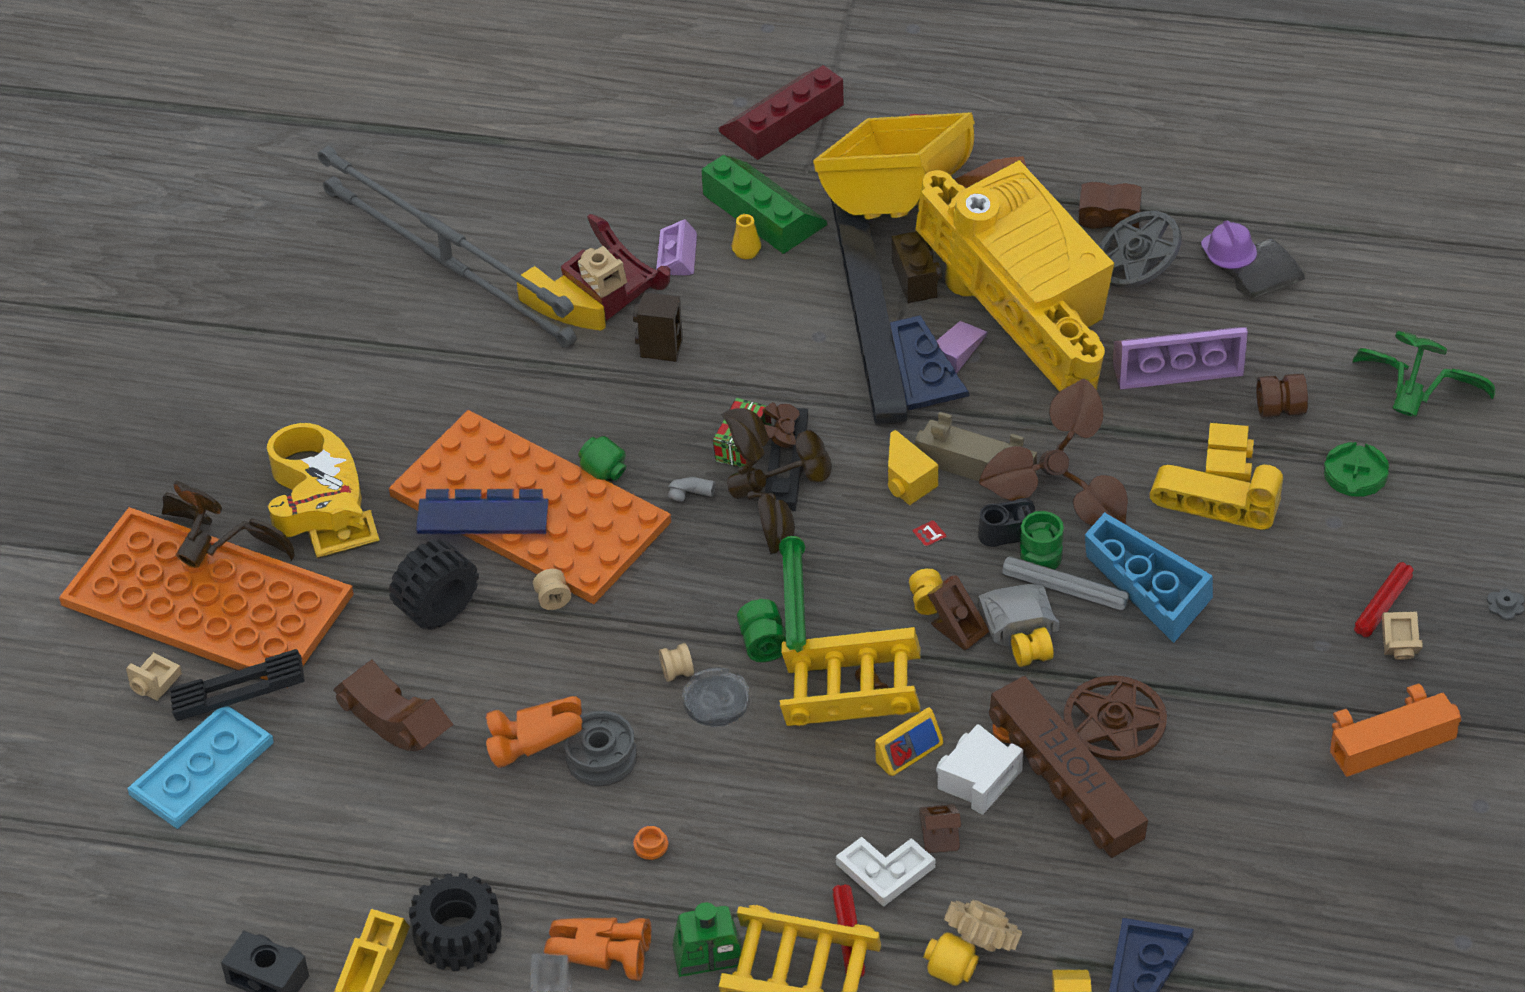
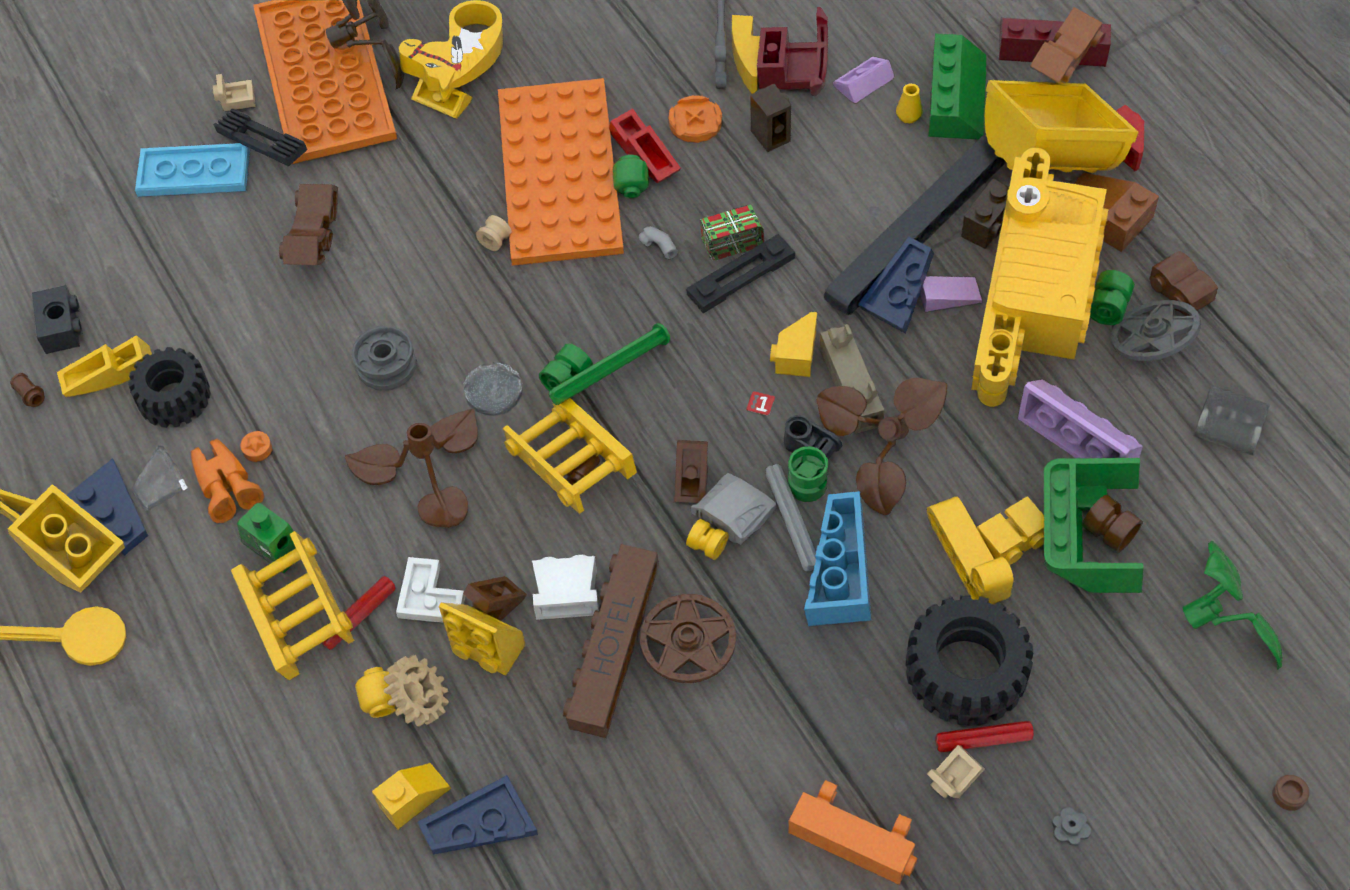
camera: 50 degrees right, 10 degrees up
(433, 584) = (423, 168): black tyre -> none
(475, 515) = (519, 149): clear blue windscreen -> none
(534, 729) = (356, 309): orange piece -> none
(571, 431) = (643, 141): none -> red slope
(585, 382) = (695, 119): none -> orange tile
(587, 901) = (256, 446): none -> orange tile
(599, 264) = (771, 42): tan brick -> none
(650, 843) = (333, 444): orange plate -> none
(676, 662) = (495, 344): tan wheel -> none
(736, 756) = (379, 462): none -> reddish brown plant
(749, 438) = (689, 232): dark brown plant -> none
(784, 426) = (764, 243): reddish brown piece -> none
(827, 103) = (1072, 42): none -> dark orange brick
(908, 742) = (551, 527): slope -> none
(920, 585) = (700, 431): yellow wheel -> none
(979, 847) = (481, 637): none -> yellow slope
(1230, 246) = (1227, 385): medium lavender piece -> none
(1237, 396) = (1074, 487): none -> green windscreen
(1309, 587) = (977, 623): none -> black tyre
(1356, 469) = (1099, 626): green tile -> none

